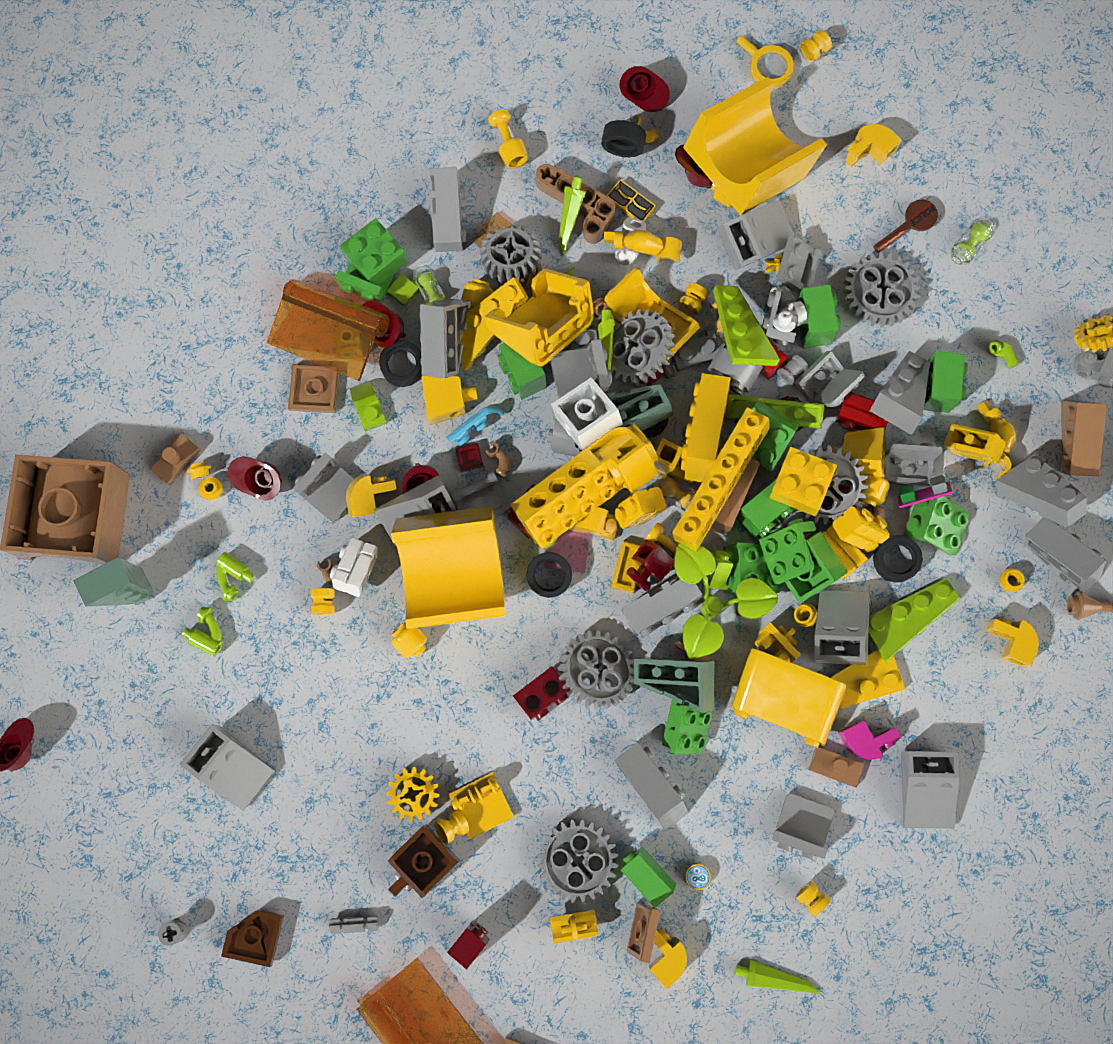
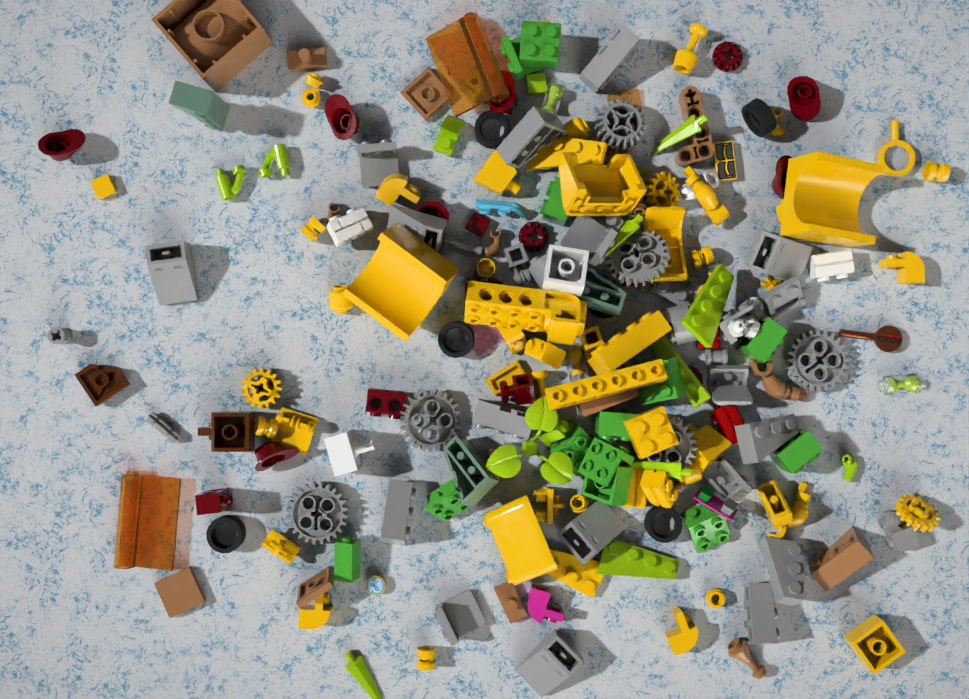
camera: 35 degrees right, 10 degrees up
(88, 751) = (103, 186): none -> yellow tile
(482, 845) = (271, 454): none -> dark red piece
(492, 976) = (215, 544): none -> black tyre
(511, 484) = (484, 265): none -> yellow wheel
(526, 430) = (541, 231): none -> dark red gear
(534, 453) = (516, 260): none -> light grey brick
(542, 125) = (719, 58): none -> dark red gear
(548, 773) = (345, 452): none -> white brick
(602, 274) = (662, 190): none -> yellow gear
(808, 201) = (831, 264): none -> white brick
(856, 497) = (672, 469): none -> lime bar
(866, 346) = (775, 387): none -> medium nougat piece

